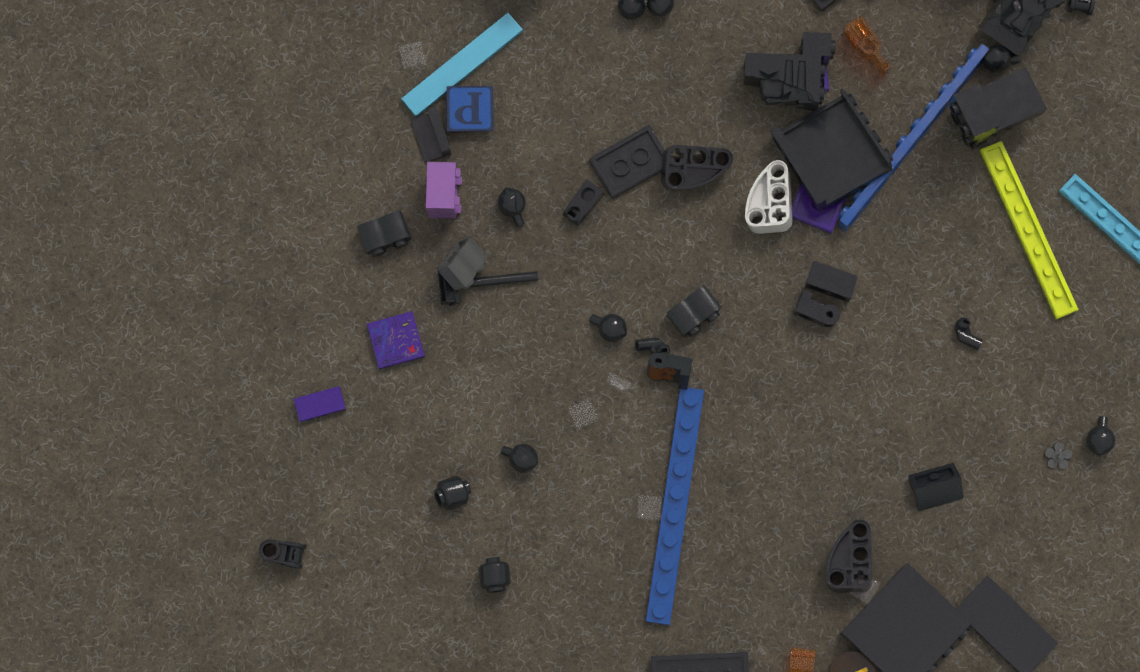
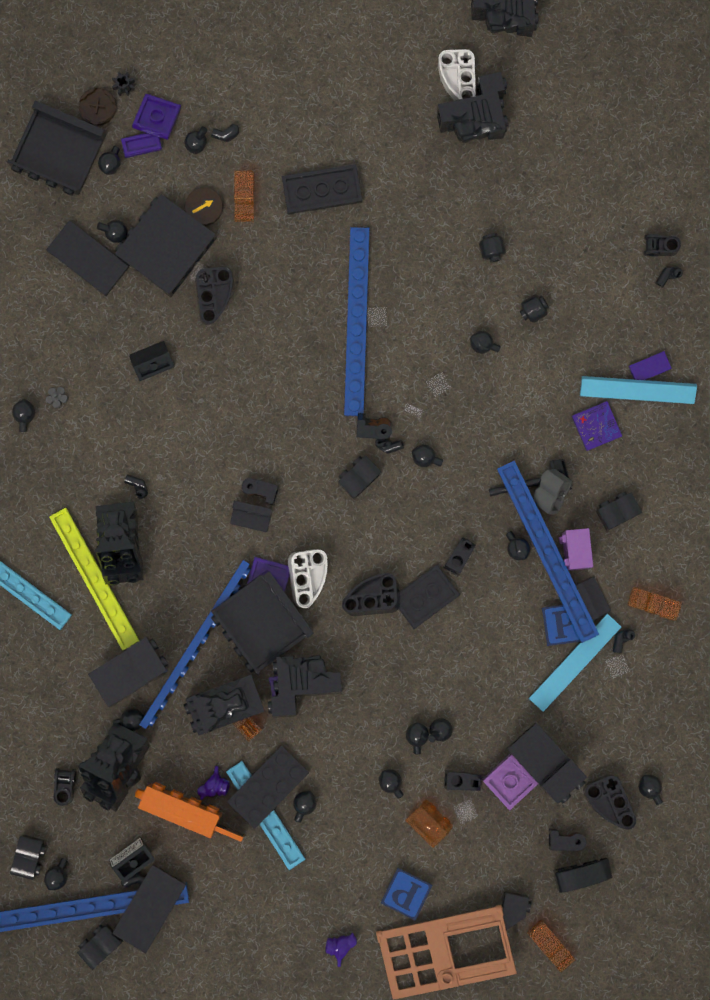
camera: 175 degrees right, 5 degrees up
(278, 518) = (669, 273): none -> black arm
(339, 377) = (638, 390): none -> medium azure tile
(357, 119) = (654, 604): none -> clear orange piece
(404, 86) = (621, 638): none -> black arm
(478, 194) = (548, 552): none -> blue plate
(887, 57) = (223, 705): none -> black brick
(968, 655) = (114, 230): none -> black piece
(996, 264) = (118, 543): none -> black brick

